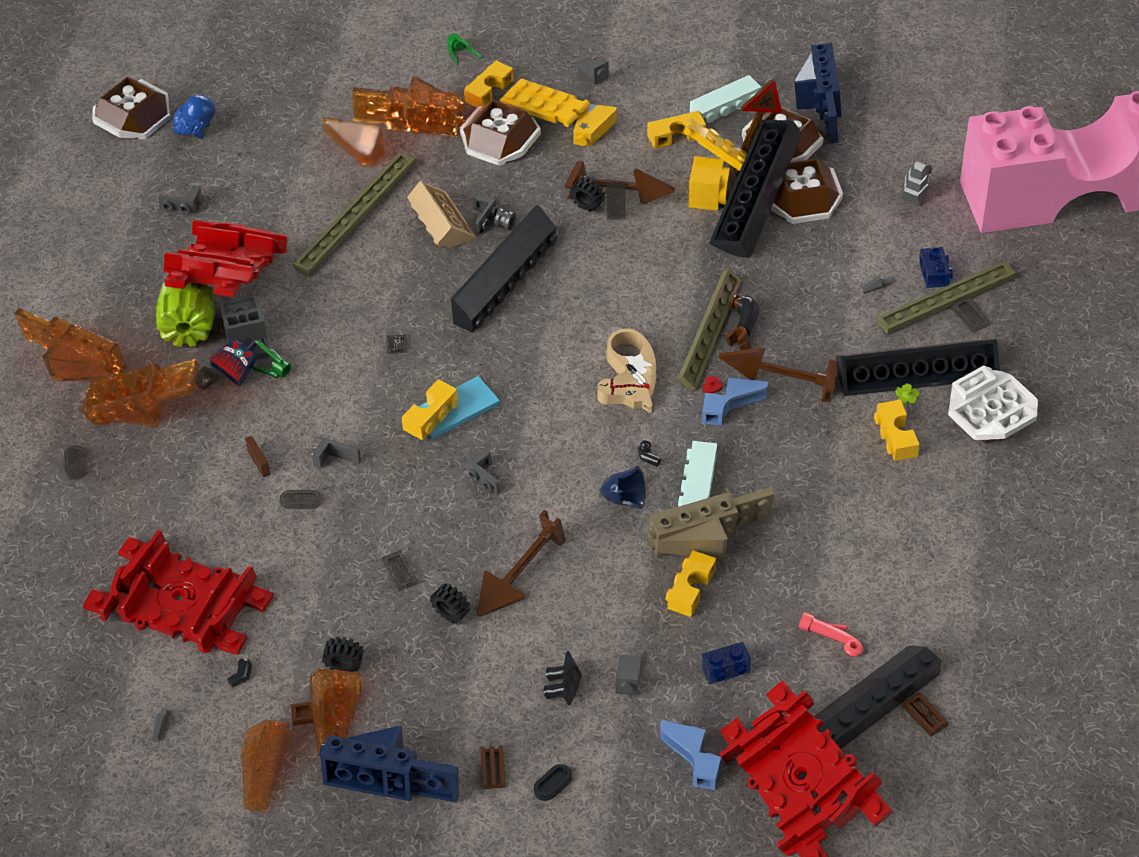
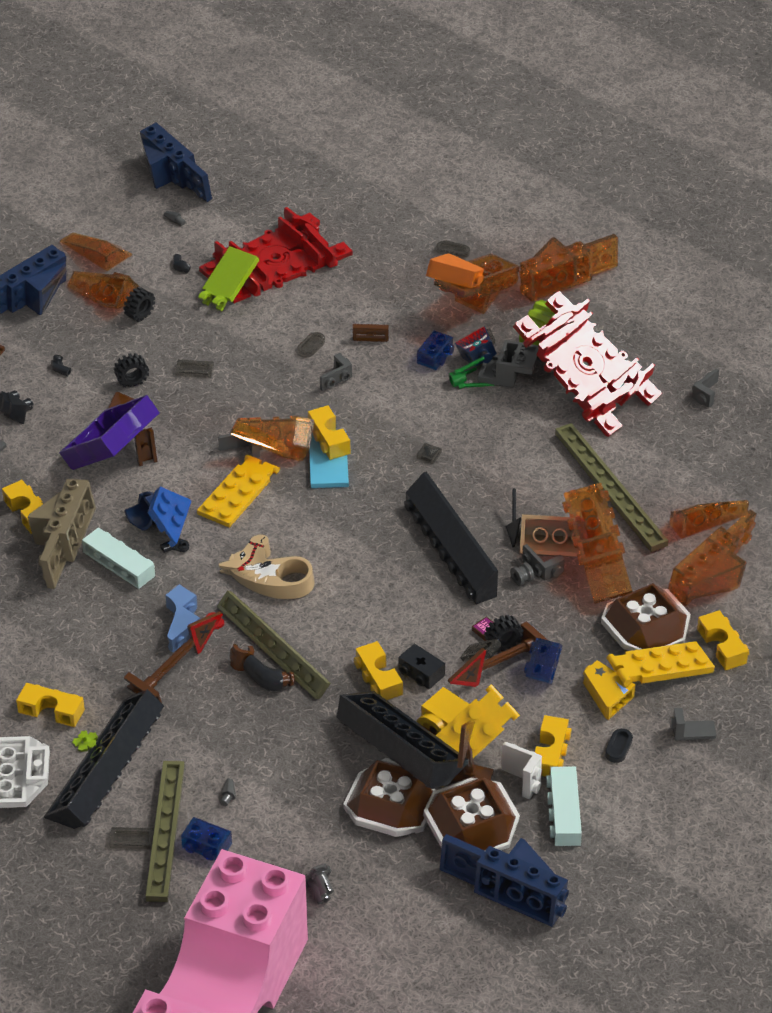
camera: 120 degrees right, 5 degrees down
(75, 763) = (172, 162): none -> dark blue wedge
(167, 379) = (455, 271): none -> orange slope
(252, 398) = (435, 350): none -> clear blue brick
(254, 597) = (228, 277): none -> lime tile
(450, 166) = (597, 542): none -> clear orange wedge
(455, 246) = (513, 527): none -> black piece
(466, 432) = (283, 437): none -> clear orange wedge
(477, 682) = (57, 365): none -> black arm
(544, 448) = (237, 491): none -> yellow hinge
(566, 548) = (109, 432): none -> dark purple tile
(581, 218) = (479, 627): none -> tile
(599, 158) = (543, 660): none -> clear blue brick
(630, 459) = (169, 512): none -> blue wing
(639, 102) = (618, 745): none -> black tile
(657, 231) = (421, 666): none -> black brick
(693, 244) = (371, 659): none -> yellow arch
(719, 117) = (523, 764): none -> white bracket

